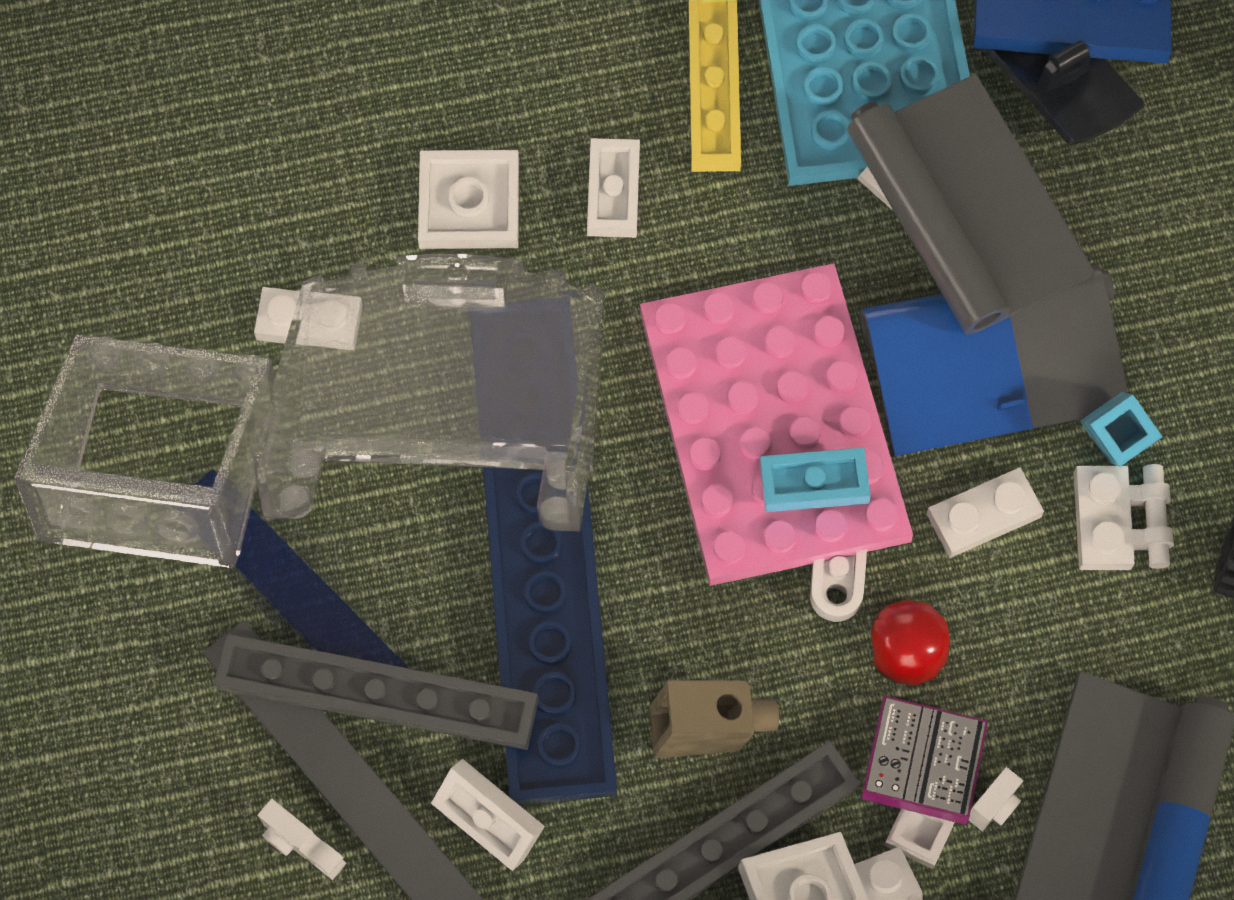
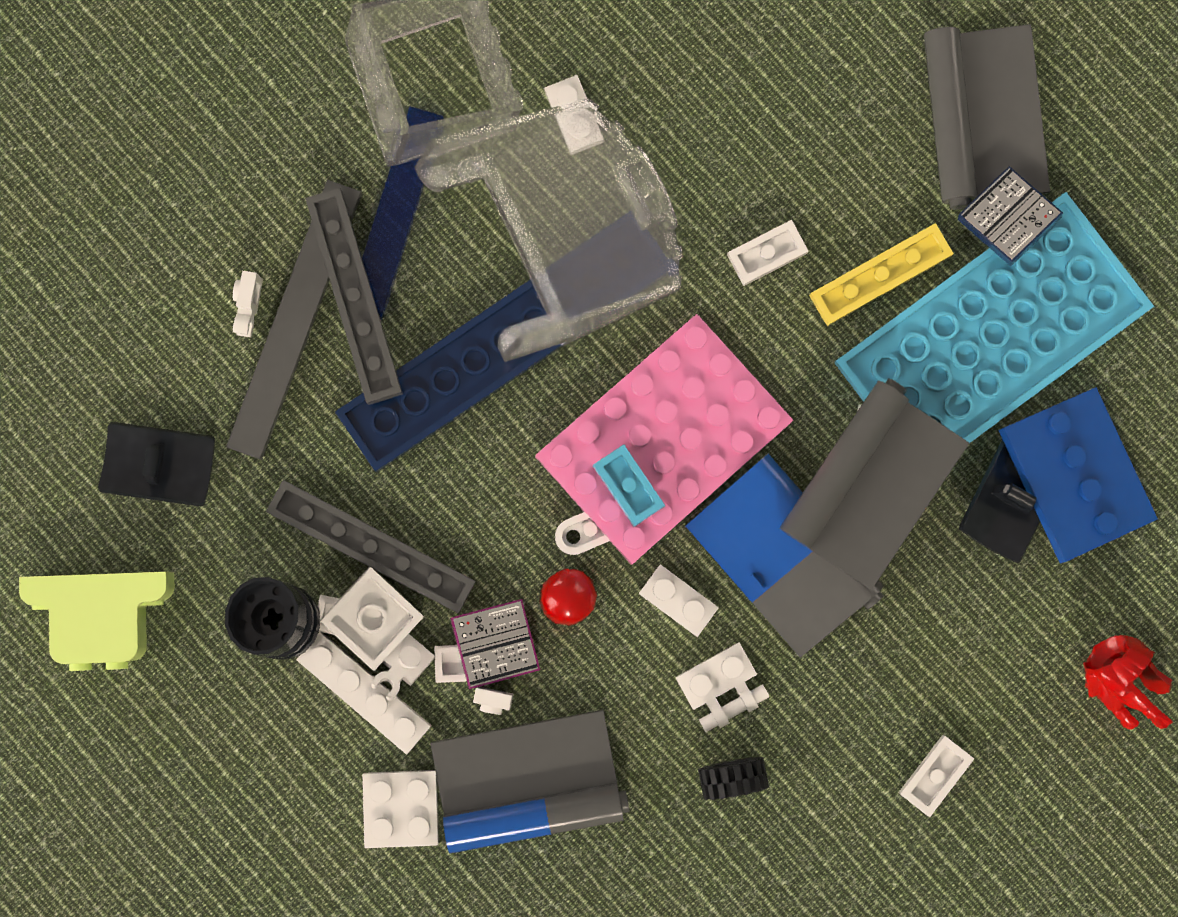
camera: 65 degrees right, 15 degrees up
(468, 199) = (708, 166): white plate -> none
(487, 814) = (320, 403): white plate -> none
(707, 717) = (440, 488): dark tan torso -> none
(1121, 428) = (774, 658): medium azure brick -> none

